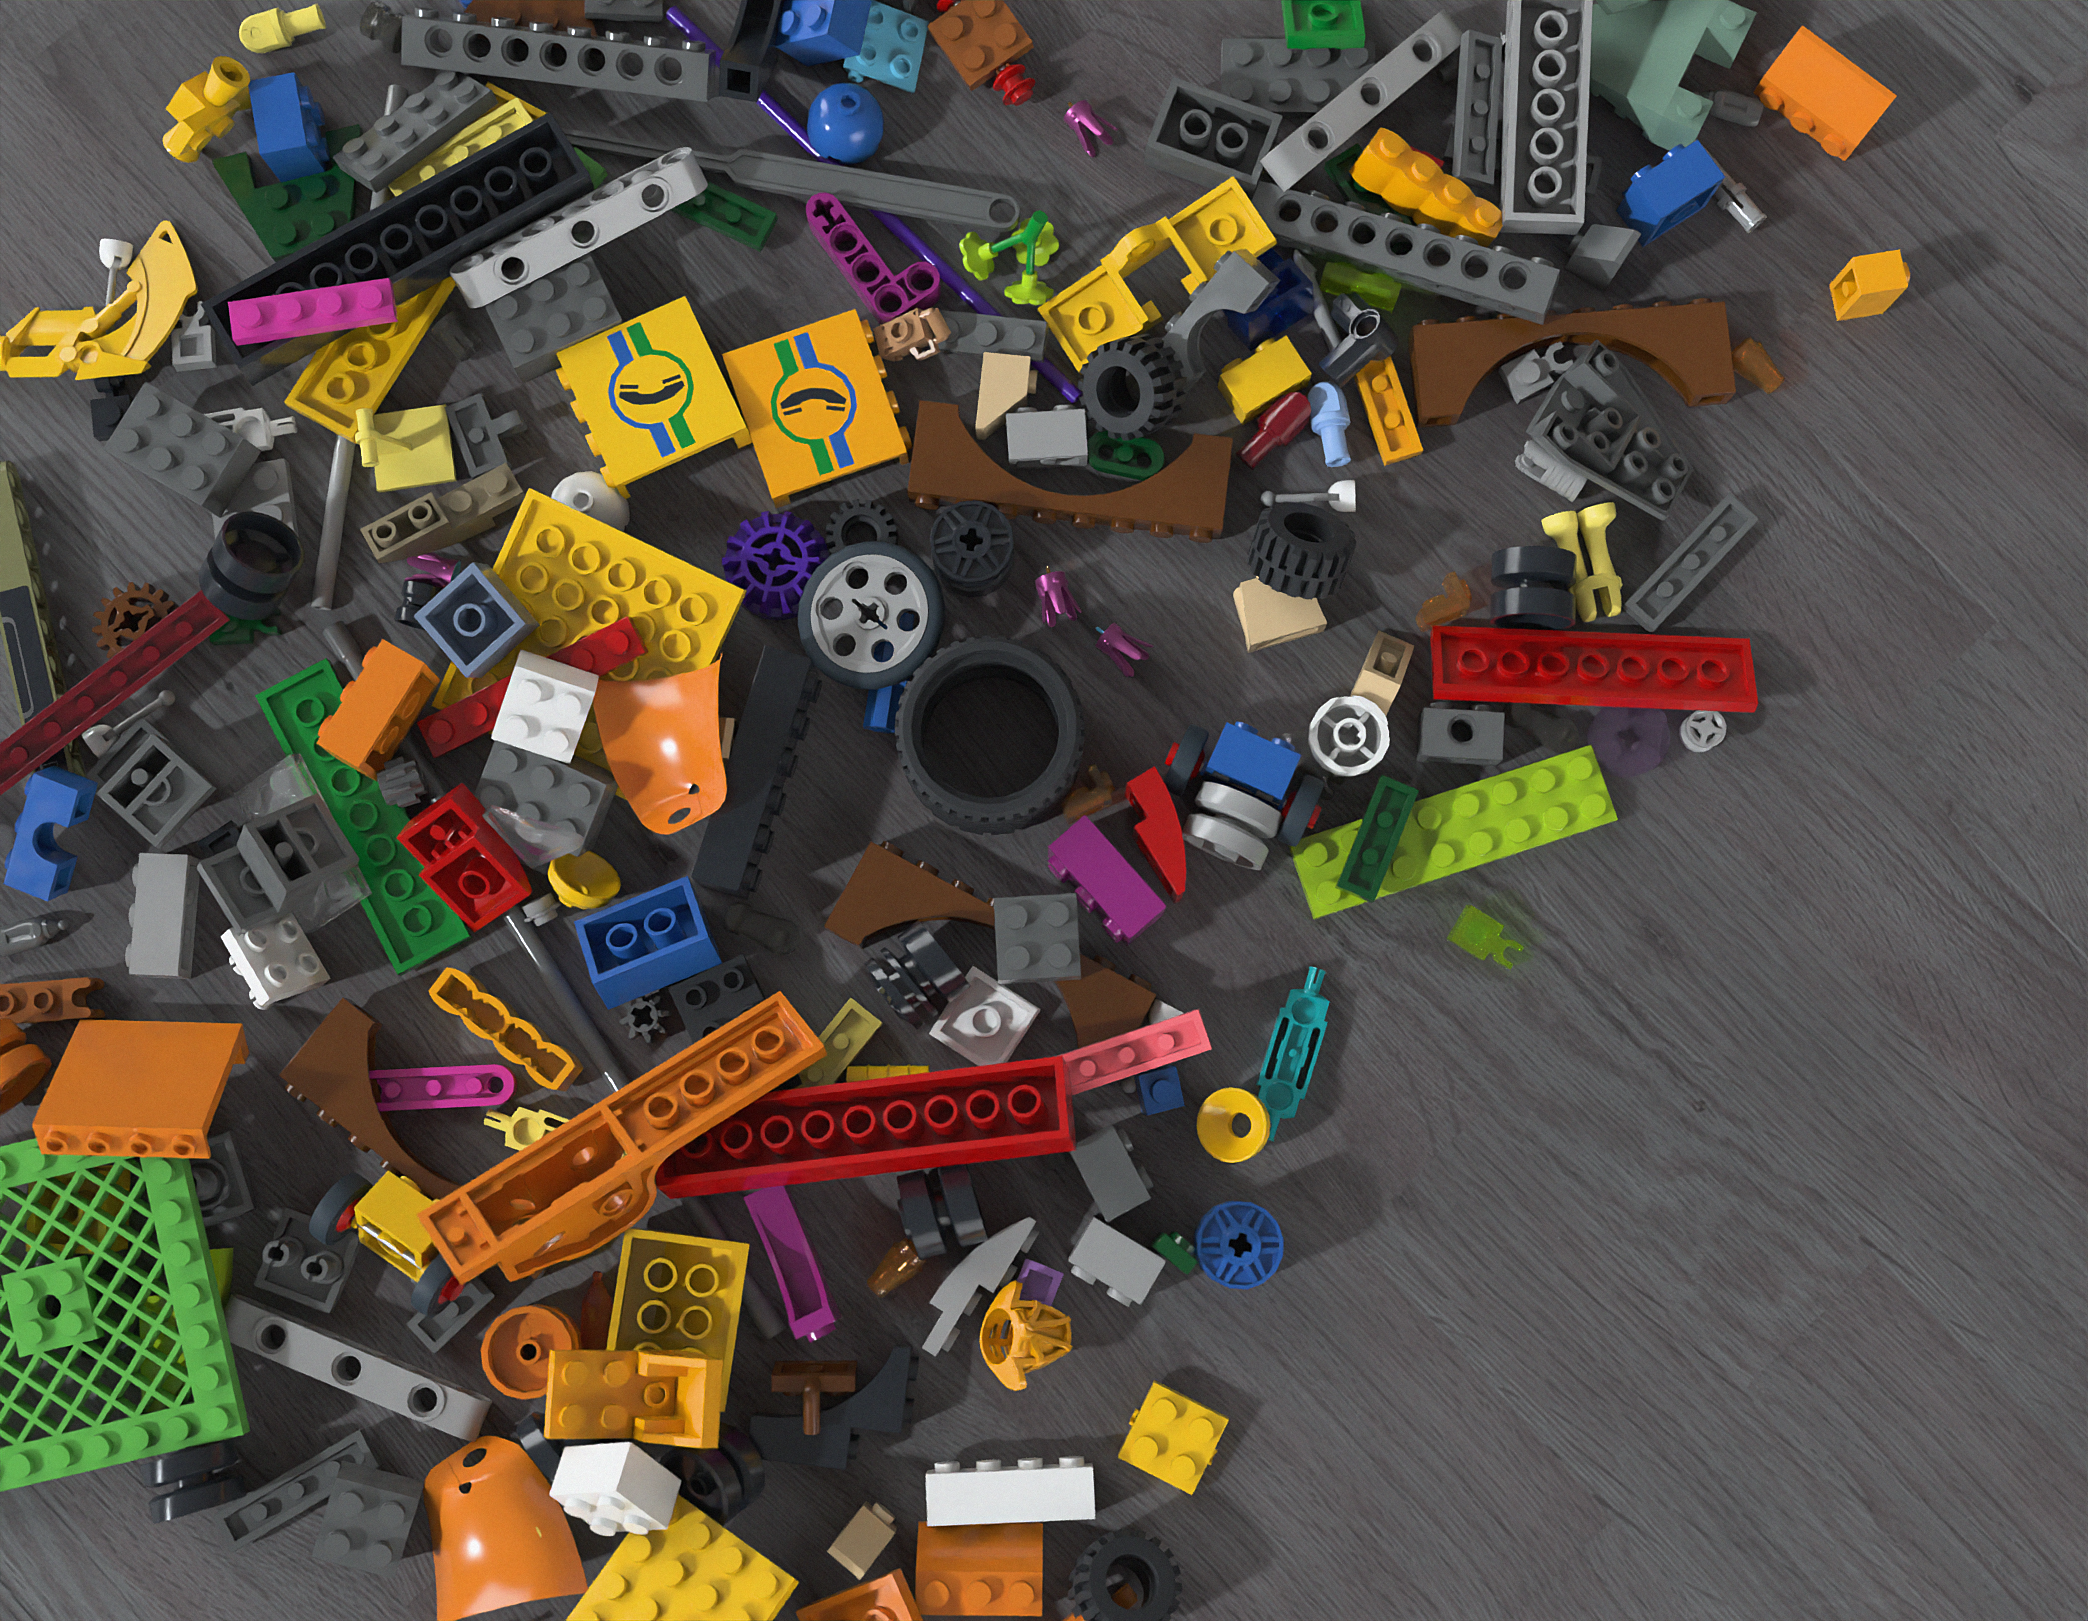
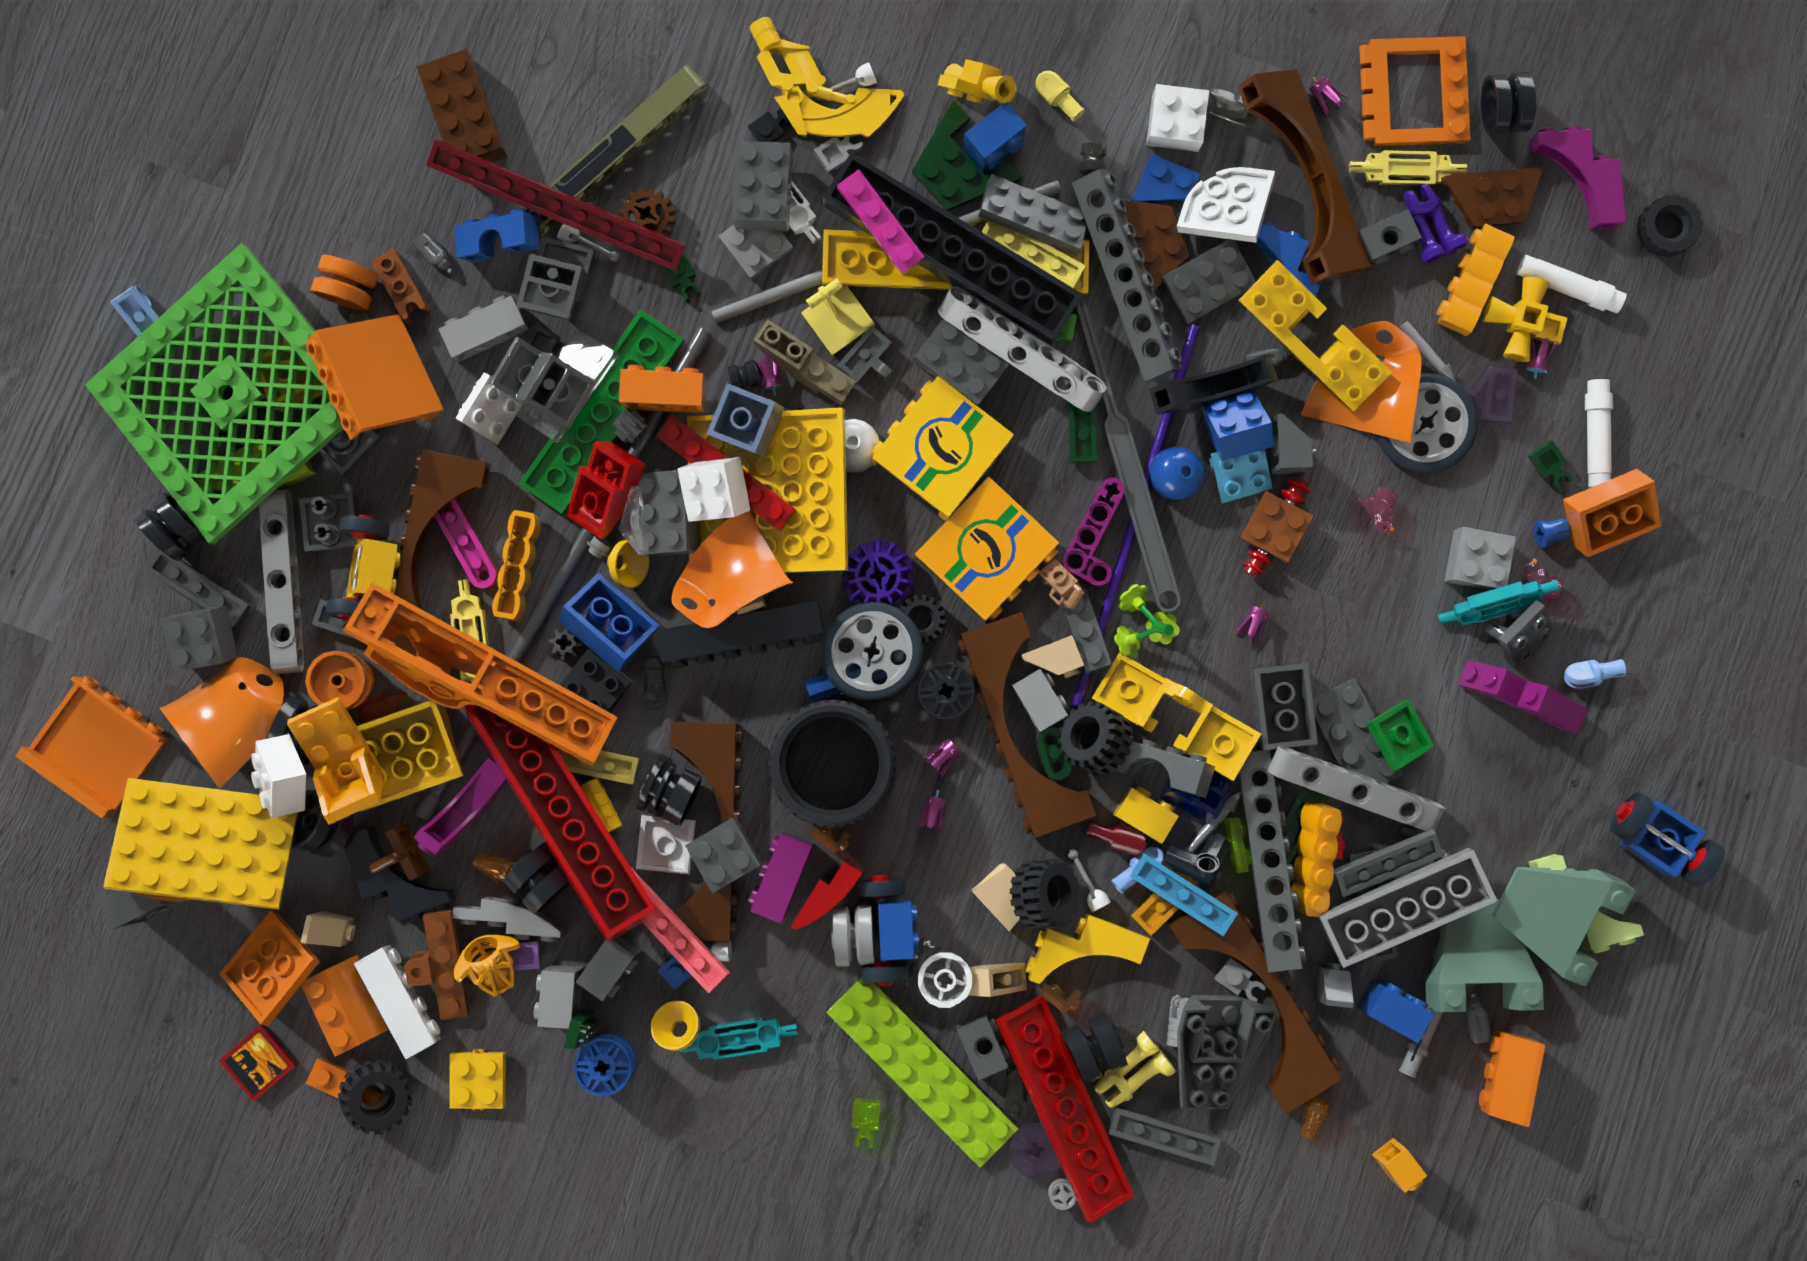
camera: 65 degrees right, 5 degrees up
(251, 565) = (713, 266): black wheel -> none
(991, 1407) = (438, 965): none -> dark orange plate
(1377, 839) = (890, 1027): dark green plate -> none
(1388, 523) = (1094, 938): none -> yellow arch
(1390, 376) = (1183, 894): none -> dark azure plate

